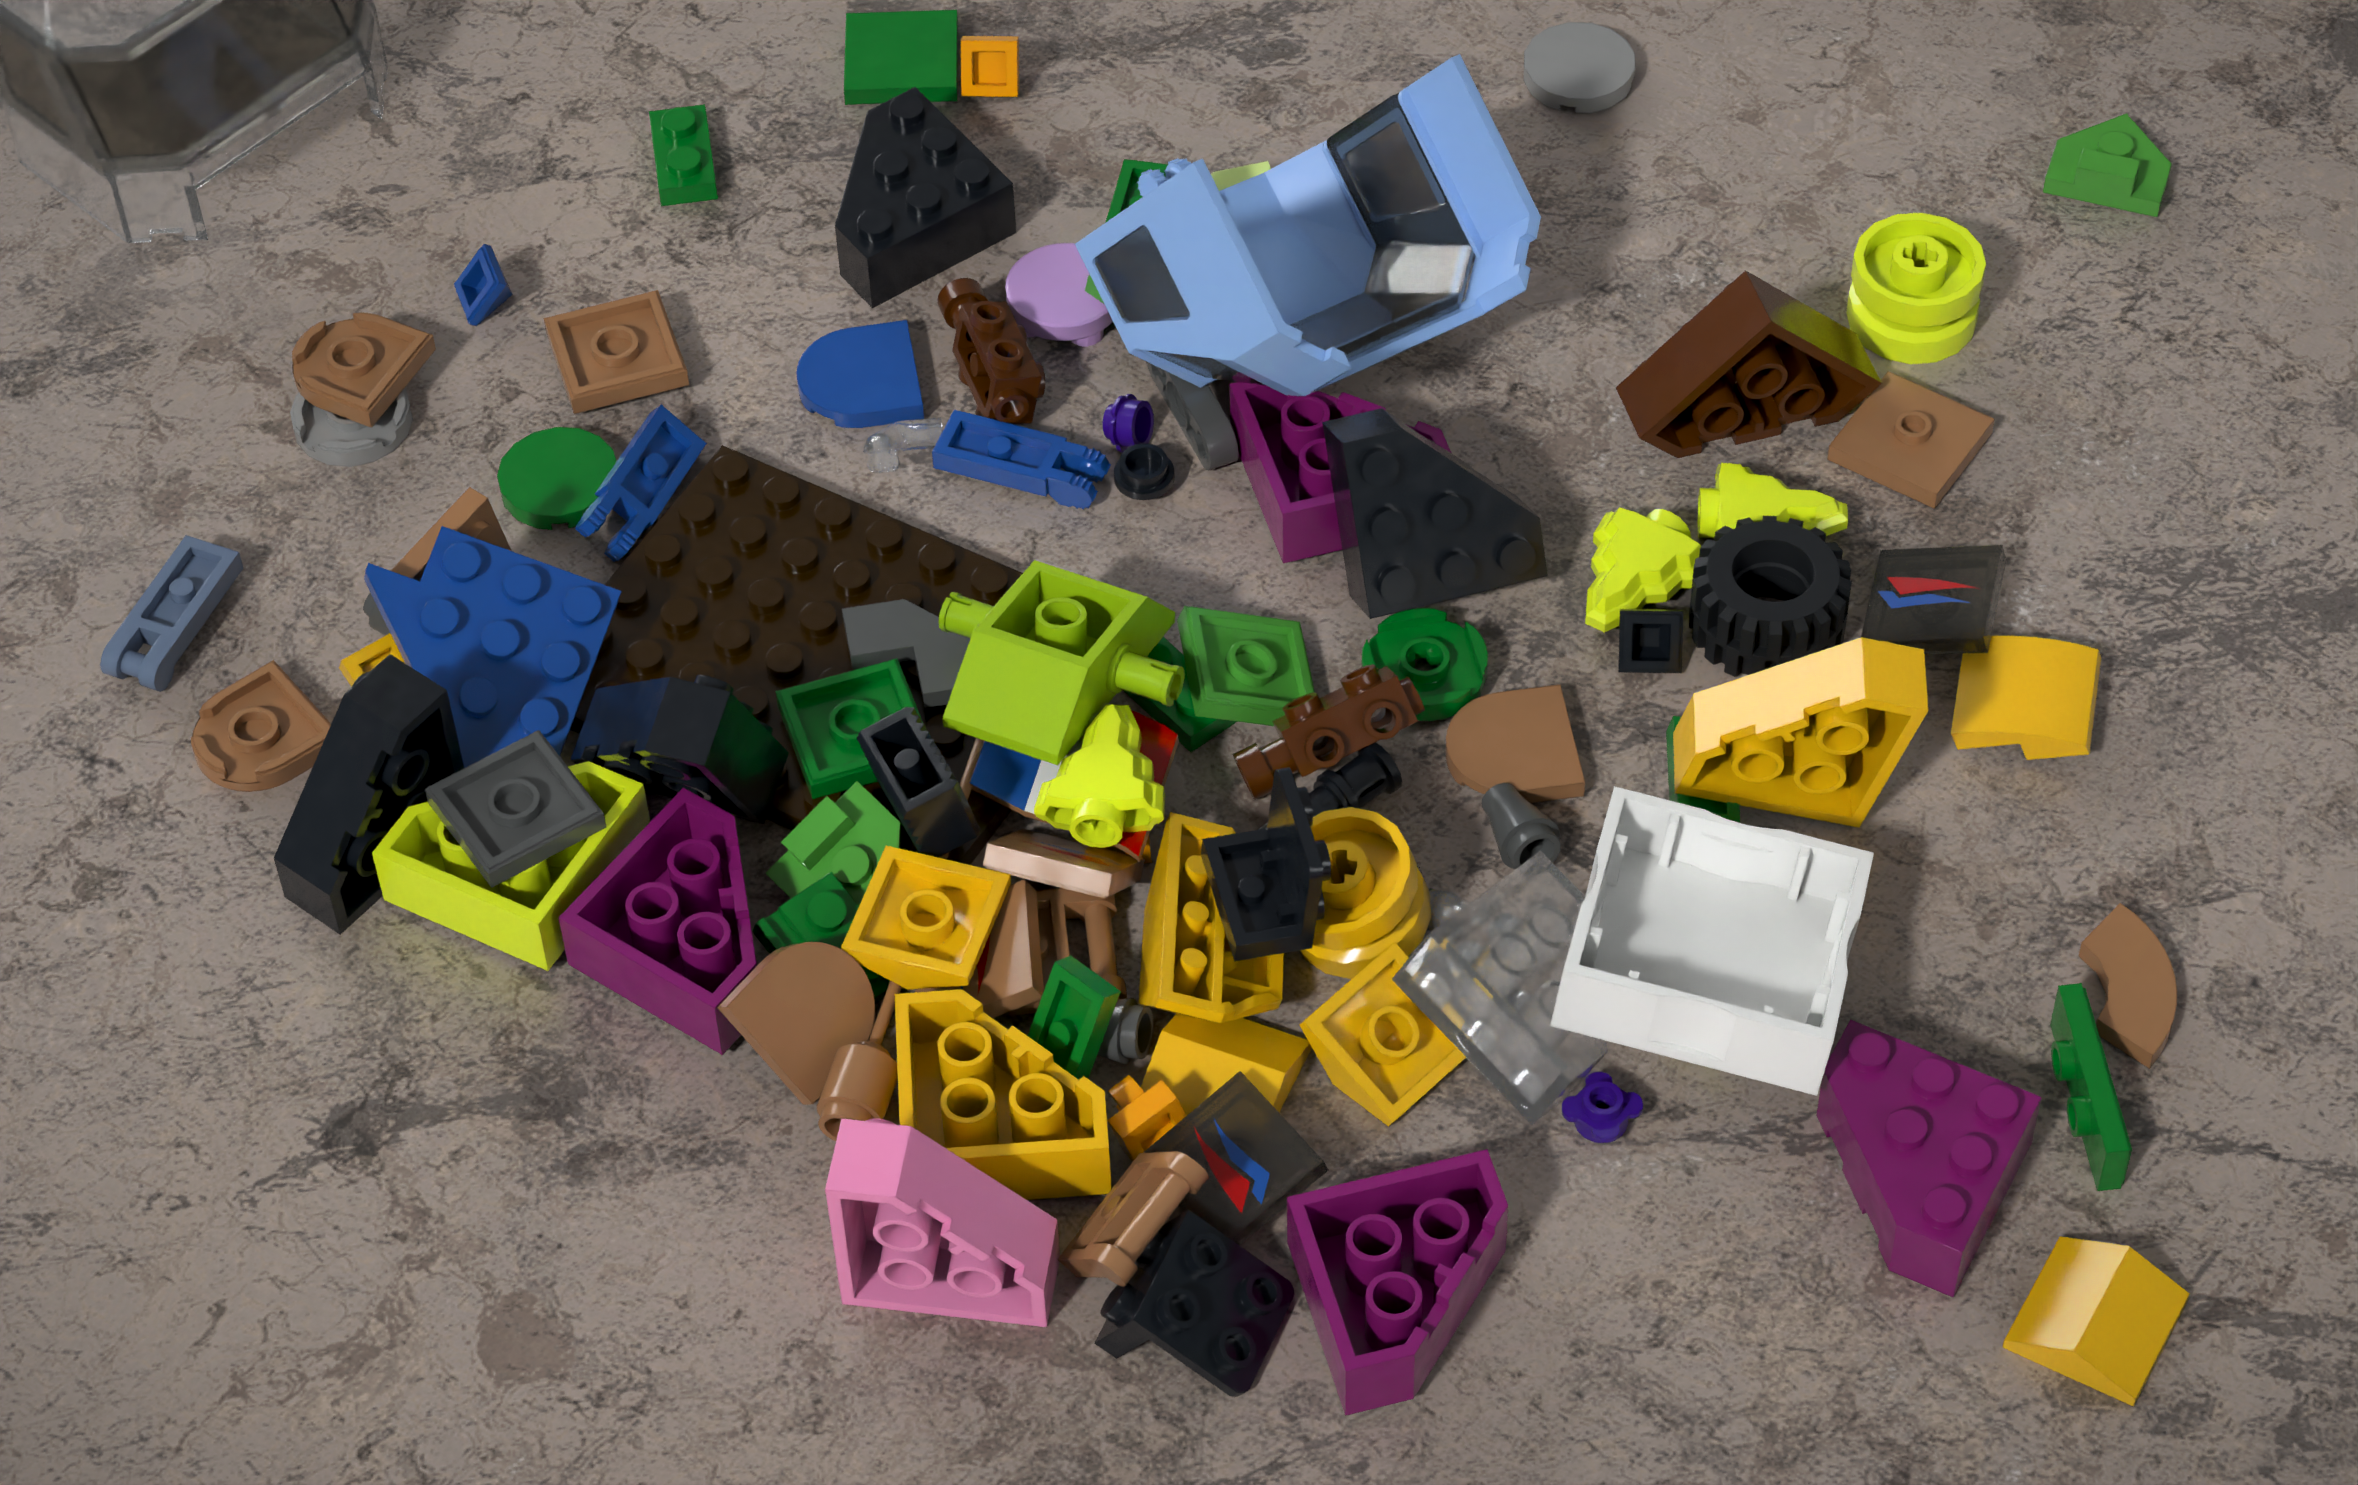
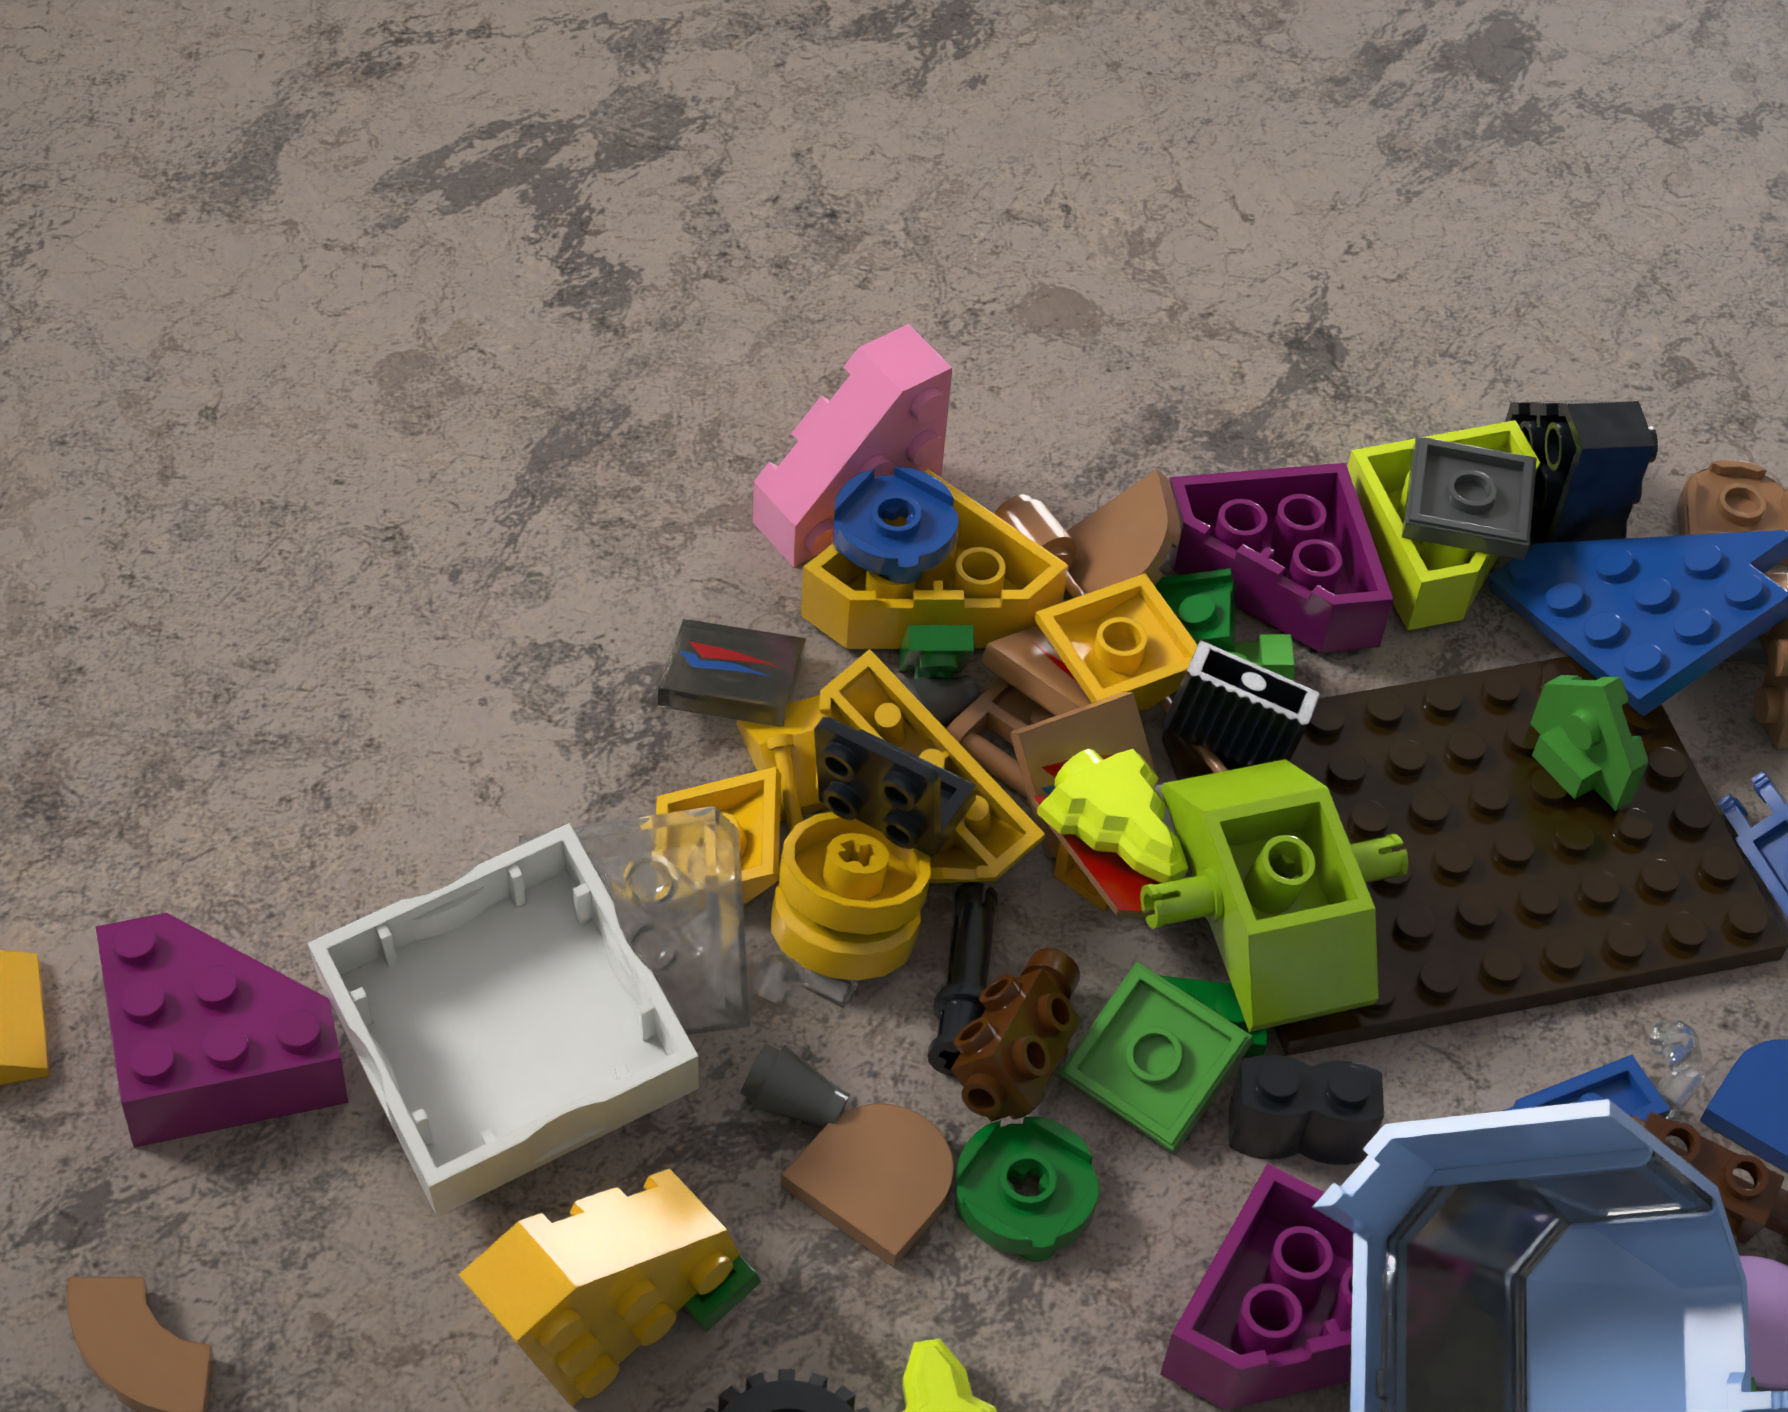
camera: 130 degrees right, 0 degrees up
(686, 737) = (1425, 610): black brick -> none
(692, 612) = (1588, 739): none -> bright green plate
(828, 716) = (1369, 763): green tile -> none
(907, 633) = (1439, 854): dark grey tile -> none
(1011, 1138) = (888, 549): none -> blue plate
(1132, 1215) = (749, 562): medium nougat plate -> none
(1143, 1115) = (822, 650): light orange tile -> none
(1187, 564) = (1296, 1108): none -> black brick
(1199, 1303) = (655, 565): black bracket -> none
(1273, 1050) = (781, 747): none -> yellow piece
(1396, 1269) = (538, 658): magenta brick -> none
(1421, 519) = (1147, 1261): black brick -> none
(1650, 641) = (866, 1367): black slope -> none
(2092, 1103) = (89, 1183): green plate -> none

